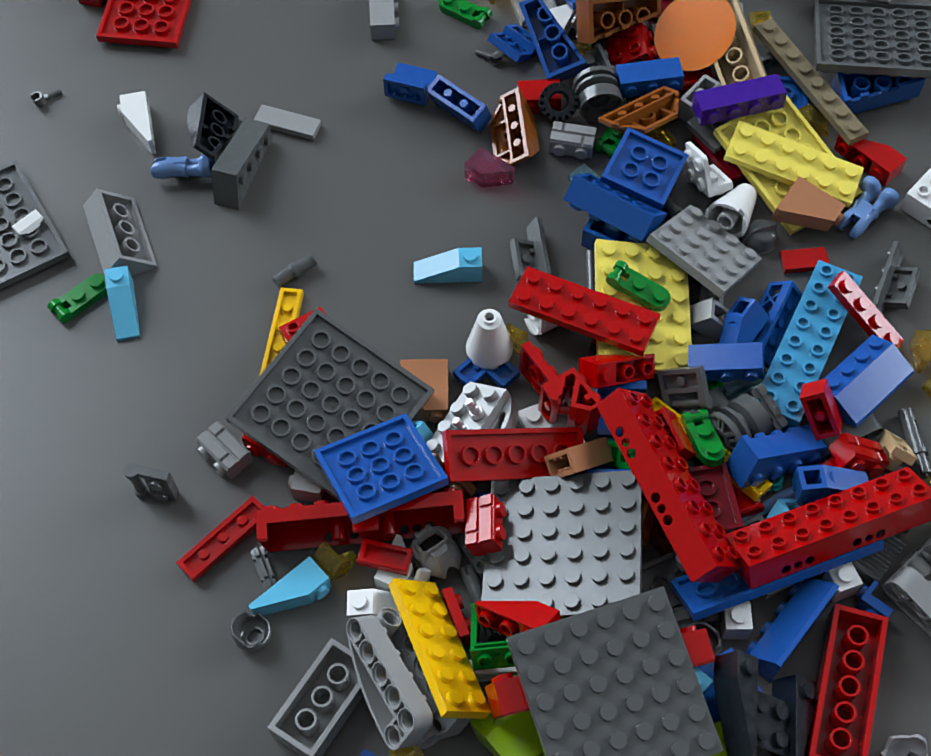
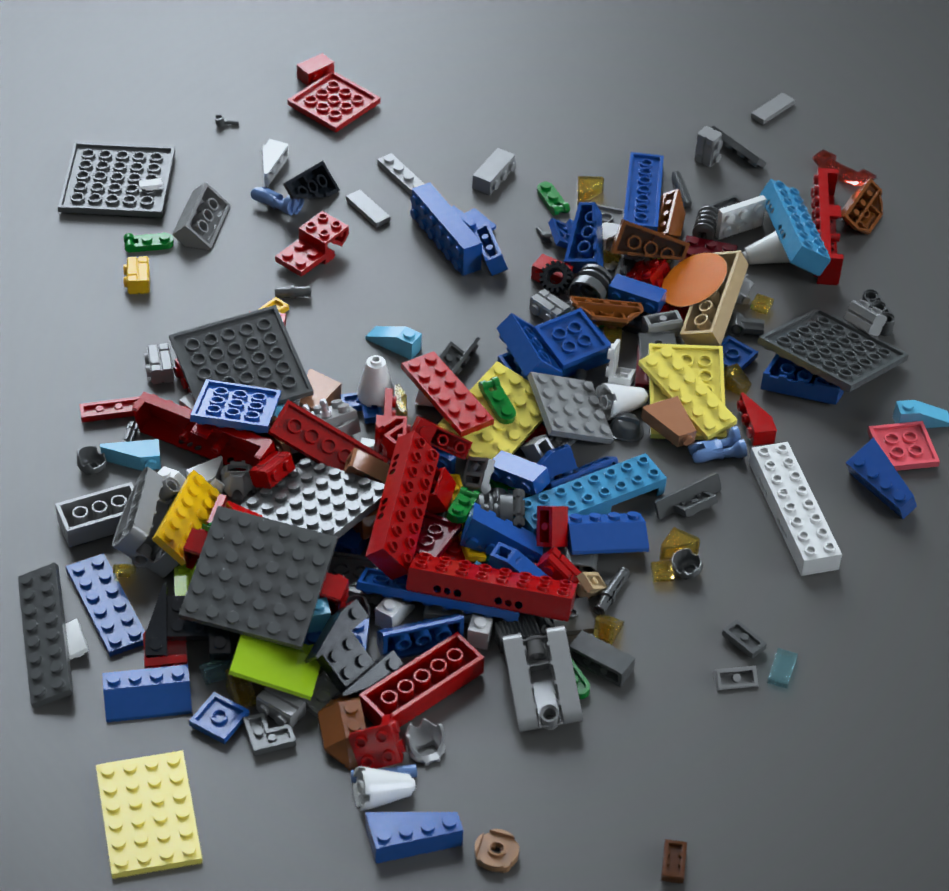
camera: 30 degrees right, 15 degrees down
(105, 348) = (137, 275): none -> yellow brick
(122, 303) = (170, 256): medium azure slope -> none
(157, 482) = (101, 354): dark grey plate -> none
(239, 163) = (300, 211): dark grey wedge -> none
(272, 200) = (312, 244): none -> red piece
(292, 63) = (399, 172): none -> light grey plate
(332, 563) = (170, 453): clear yellow panel -> none
(385, 557) = (202, 461): red tile -> none
(397, 104) = (446, 229): none -> blue brick
(488, 170) = (473, 297): clear pink slope -> none
(514, 129) = (515, 282): dark orange wedge -> none
(739, 99) = (679, 331): dark purple brick -> none
(802, 259) = (636, 449): red tile -> none
(811, 82) = (752, 351): dark tan plate -> none
(863, 309) = (646, 497): plate -> none
(871, 603) = (490, 649): blue bracket -> none

